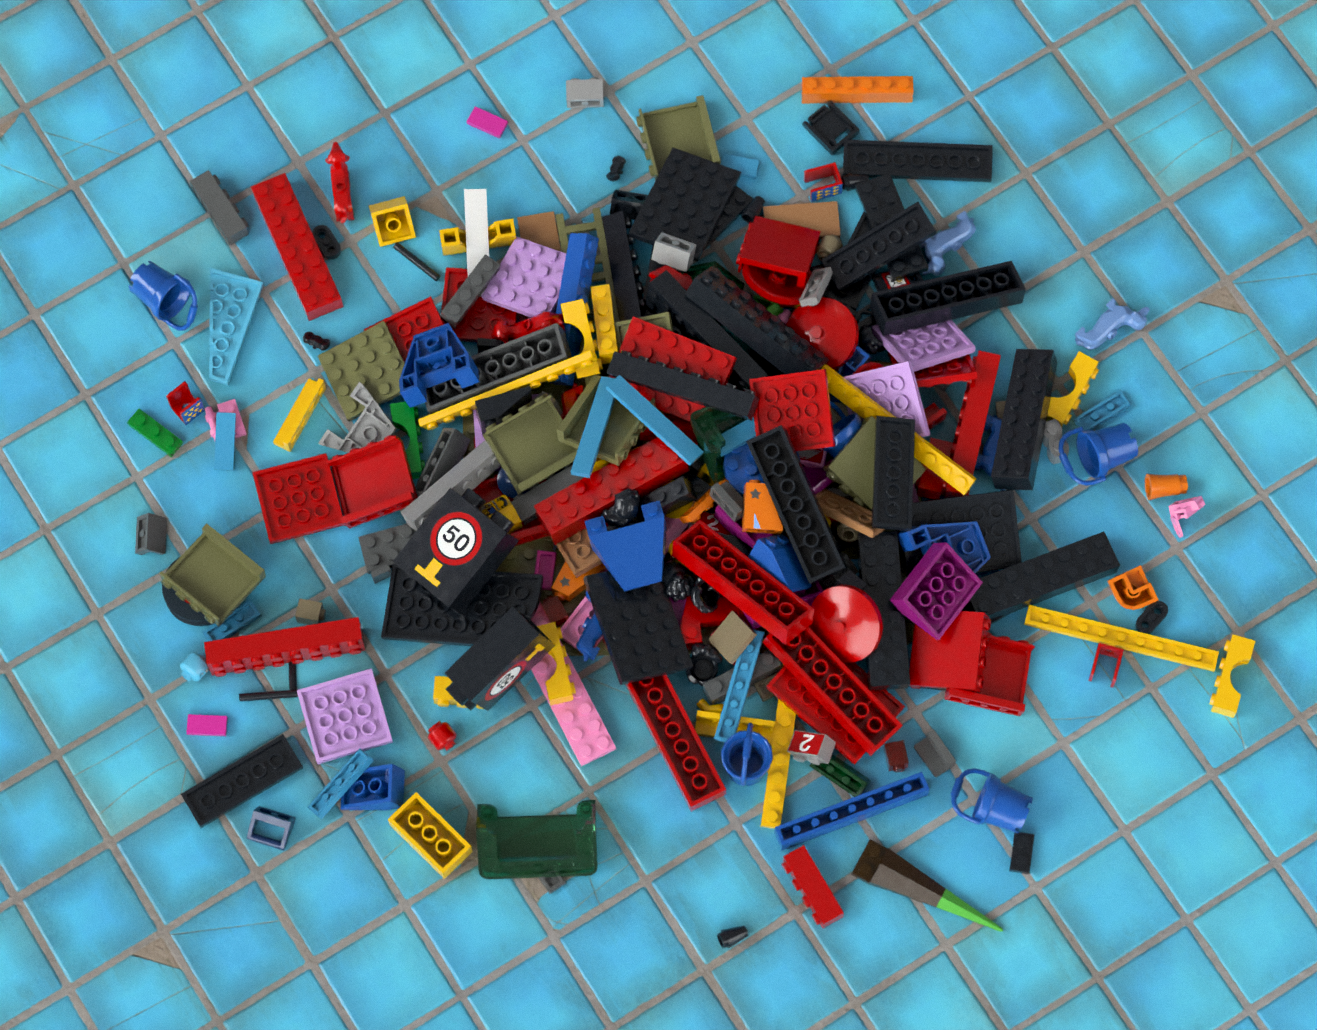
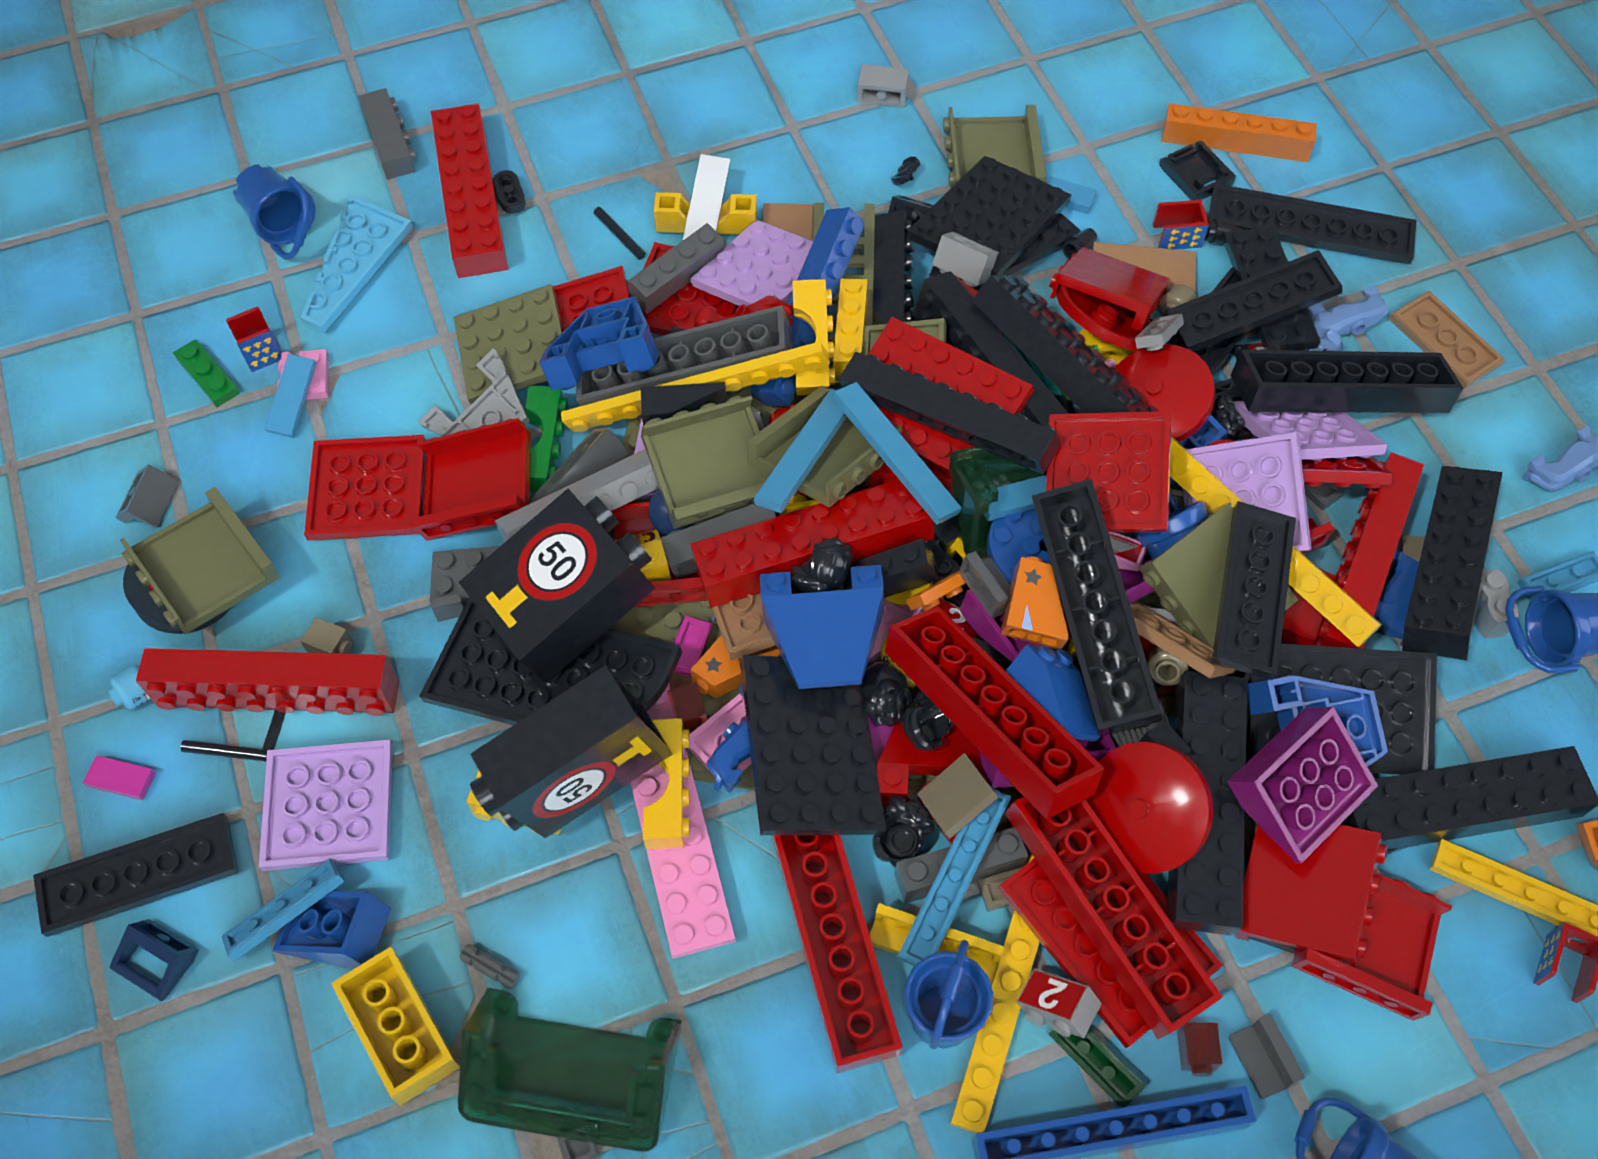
camera: 10 degrees right, 10 degrees down
(234, 623) = (218, 634): dark azure tile -> none
(299, 414) = (406, 383): yellow fence -> none
(316, 341) = (457, 299): black piece -> none
(340, 183) = (546, 128): red animal -> none
(392, 221) = (600, 182): yellow slope -> none
(442, 736) = (465, 864): red head -> none
(473, 792) = (490, 966): none -> dark grey axle
(487, 122) = (752, 99): dark pink tile -> none
(704, 706) = (892, 900): yellow arm -> none
(1019, 241) = (1440, 330): none -> medium nougat tile
(1081, 371) = (1532, 518): yellow arch -> none

